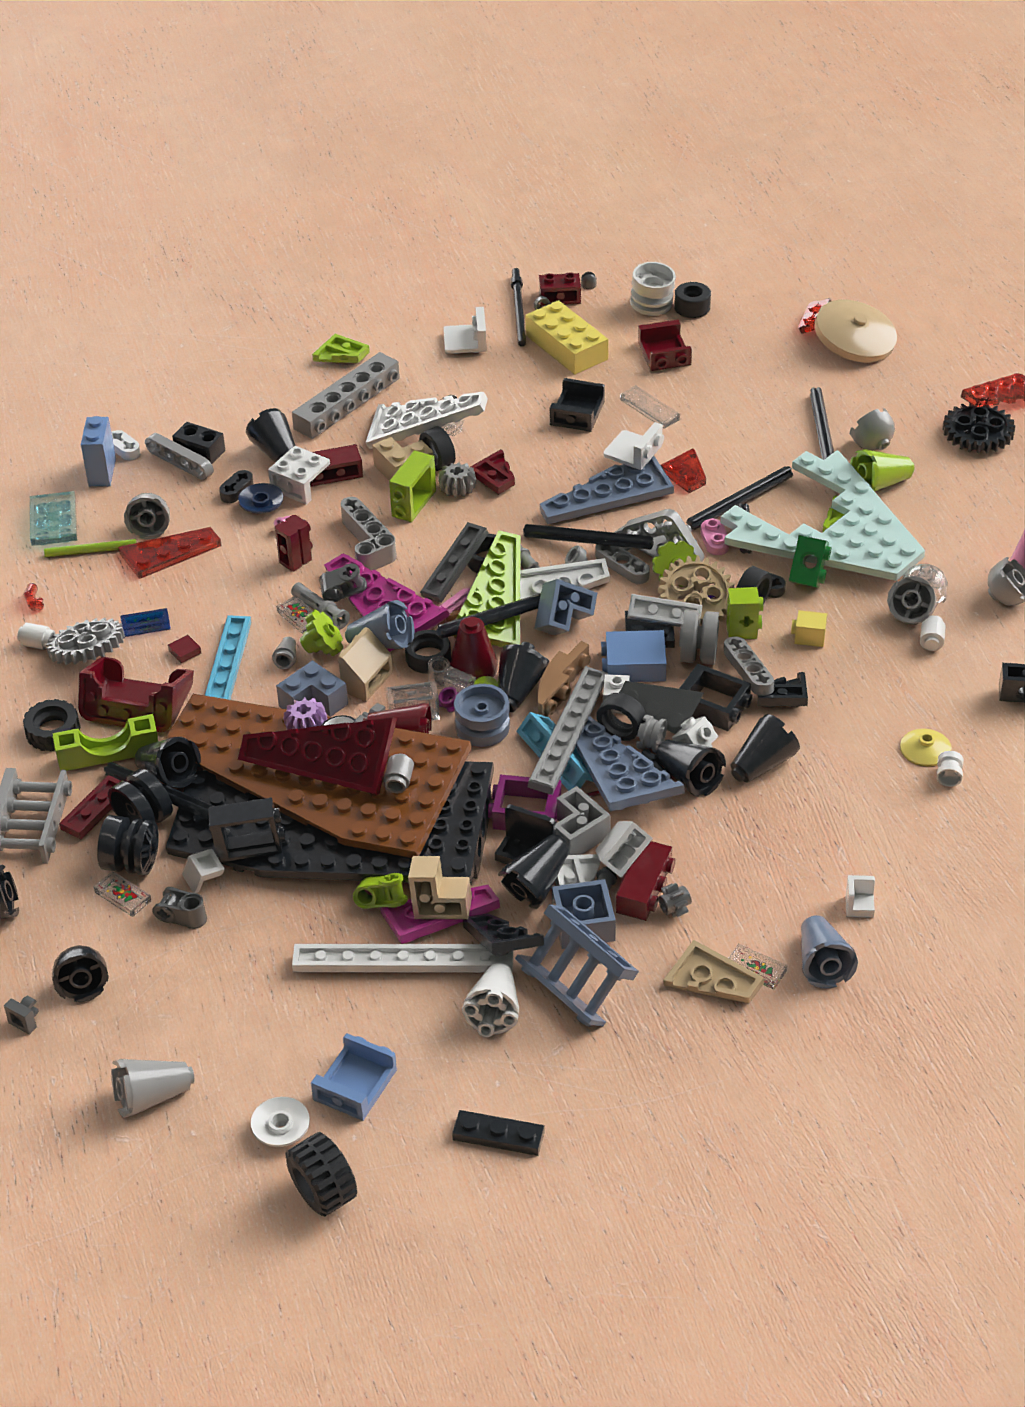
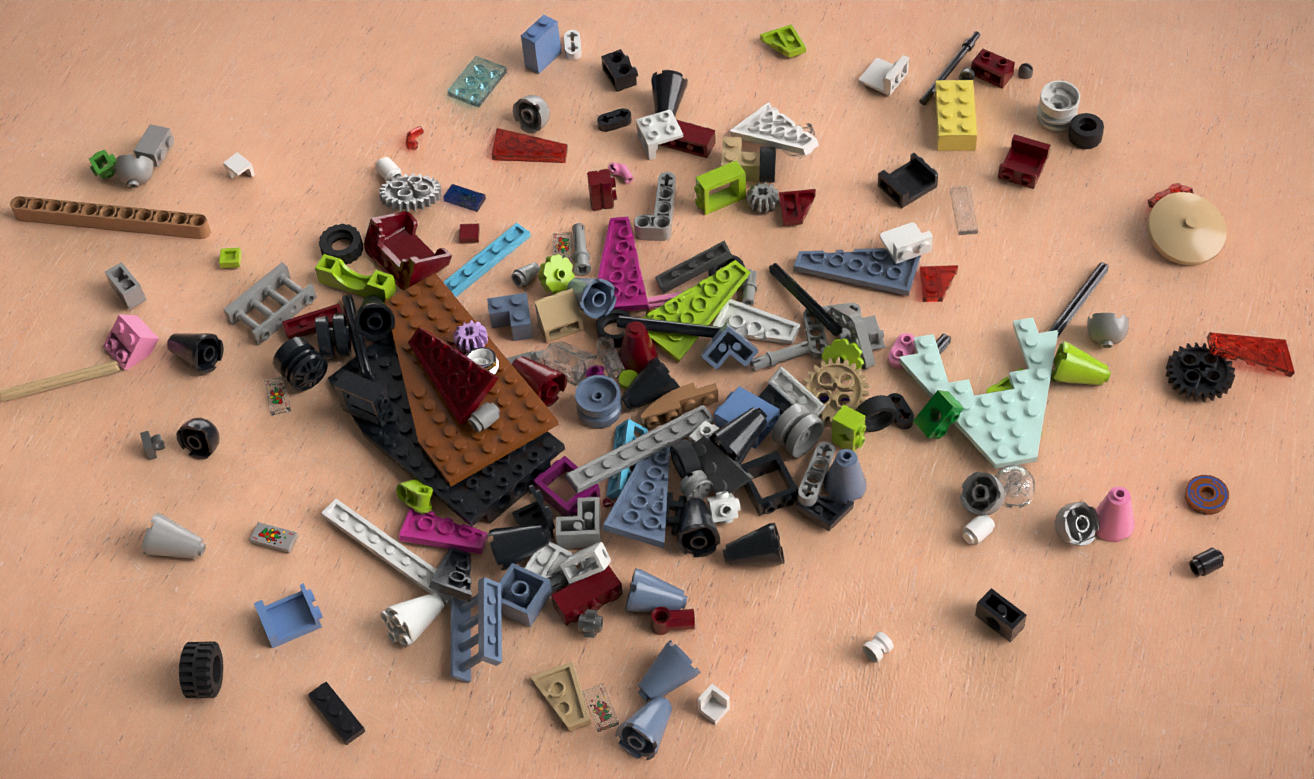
camera: 40 degrees right, 10 degrees up
(86, 548) = (479, 117): lime bar -> none
(179, 456) = (597, 74): light grey beam -> none
(183, 908) = (298, 429): dark grey piece -> none
(201, 867) = (330, 408): white panel -> none
(258, 1020) = (273, 537): none -> light grey tile
(260, 498) = (618, 139): dark blue dish -> none
(277, 1113) = (219, 609): white dish -> none
(340, 583) = (602, 242): dark grey piece -> none
(345, 395) = (752, 82): light grey brick -> none
(437, 895) = (439, 520): tan brick -> none
(576, 554) = (784, 310): light grey tile -> none
(607, 598) = (773, 358): none -> light grey pin
(656, 660) = (741, 433): none -> black cone
(706, 841) = (651, 592): none -> sand blue cone
(741, 496) = (954, 328): black axle -> none
(744, 854) = (674, 620): none -> dark red piece
(781, 649) = (845, 478): none -> sand blue cone
(793, 892) = (667, 672): none -> sand blue cone
(809, 628) = (892, 469): light yellow brick -> none
(924, 746) = (889, 625): light yellow dish -> none

